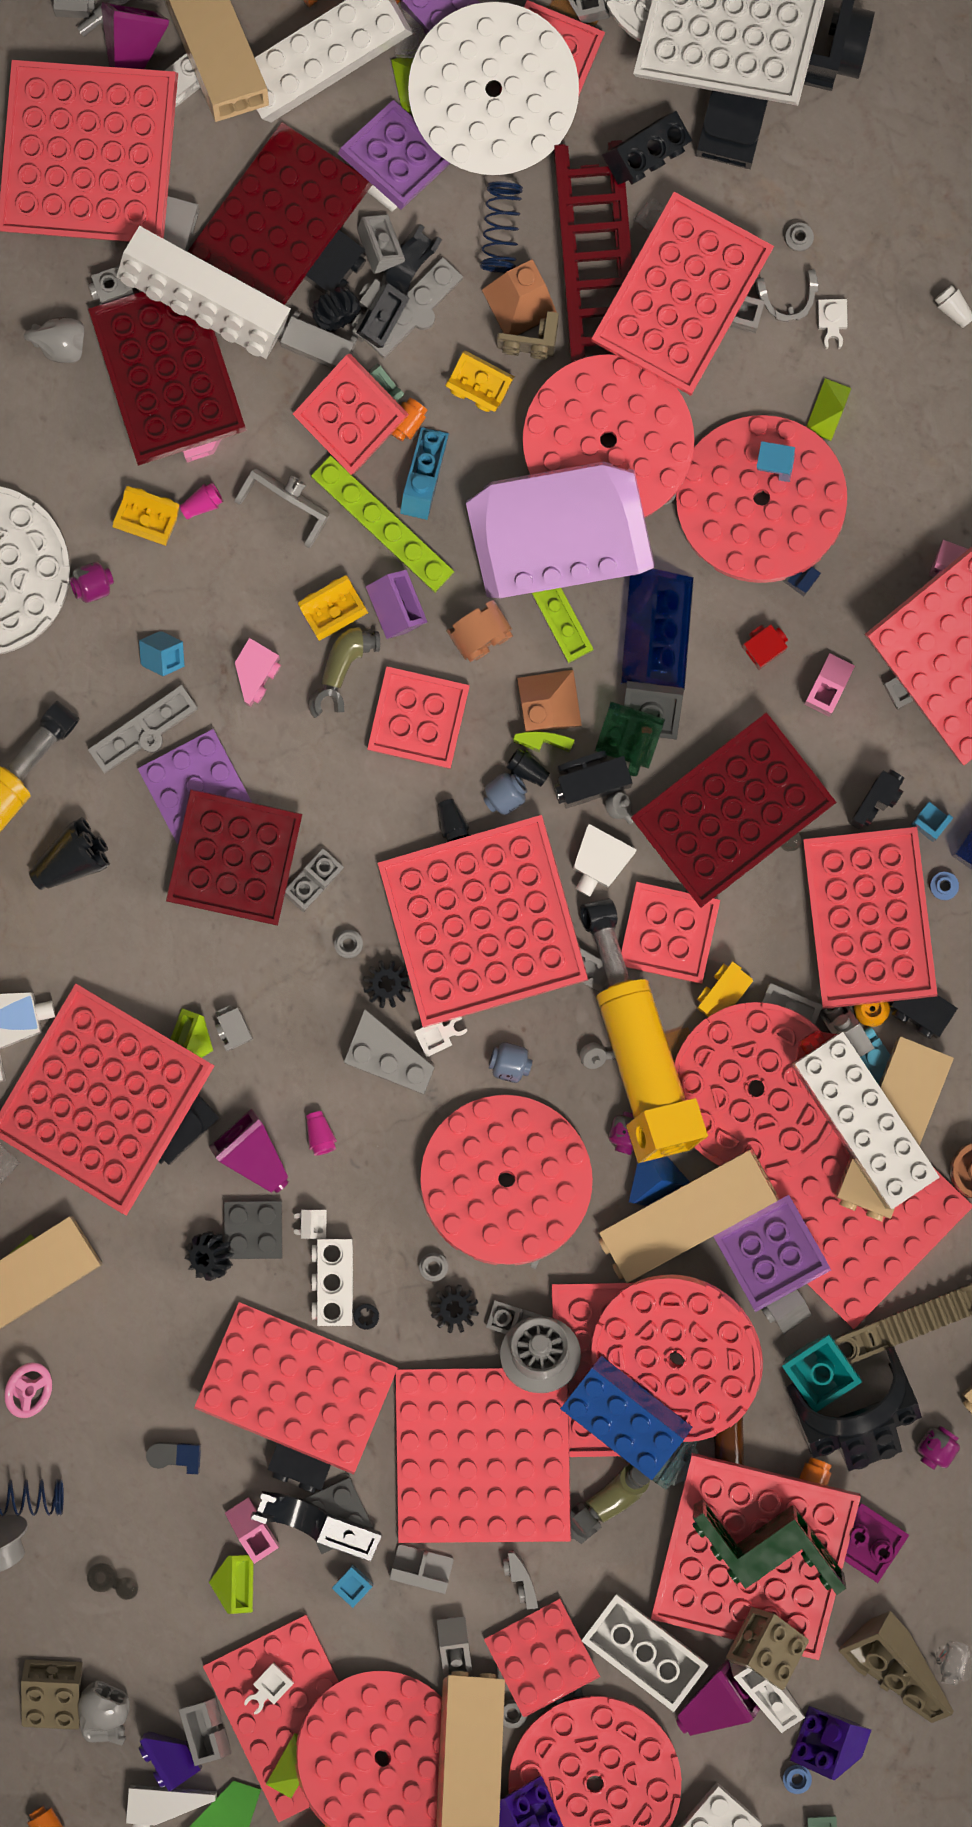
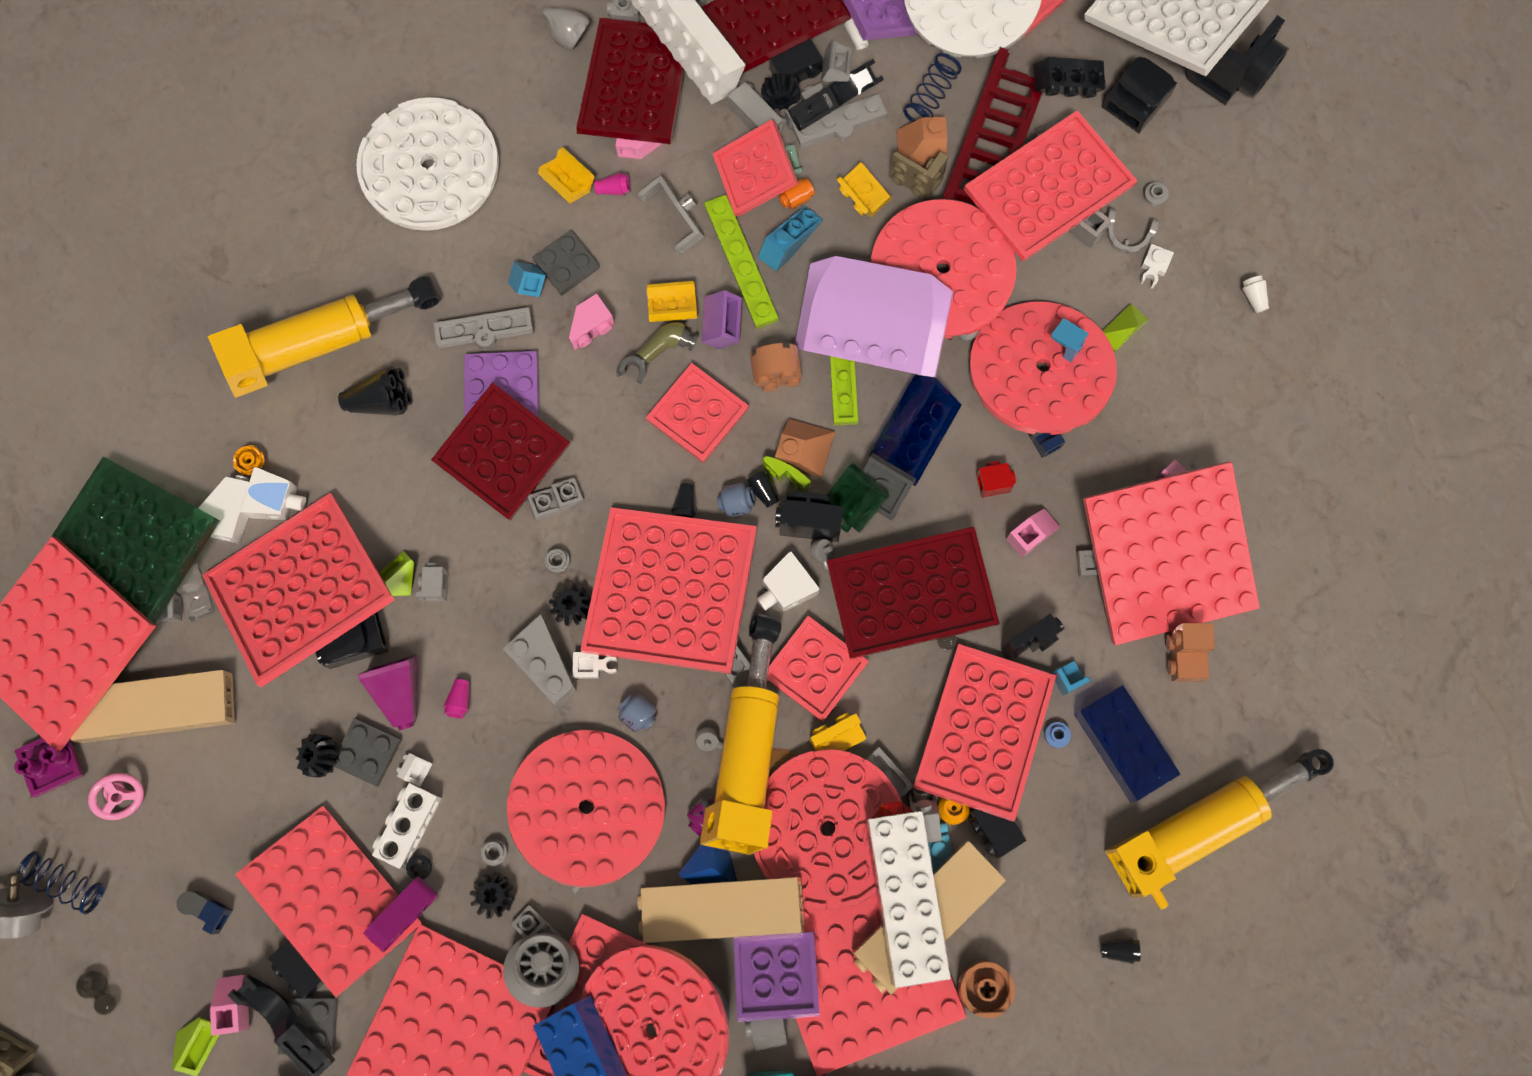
camera: 25 degrees right, 10 degrees down
(91, 582) = (501, 205): magenta head -> none
(193, 614) = (566, 263): none -> dark grey plate
(376, 1366) = (400, 914): none -> magenta beam

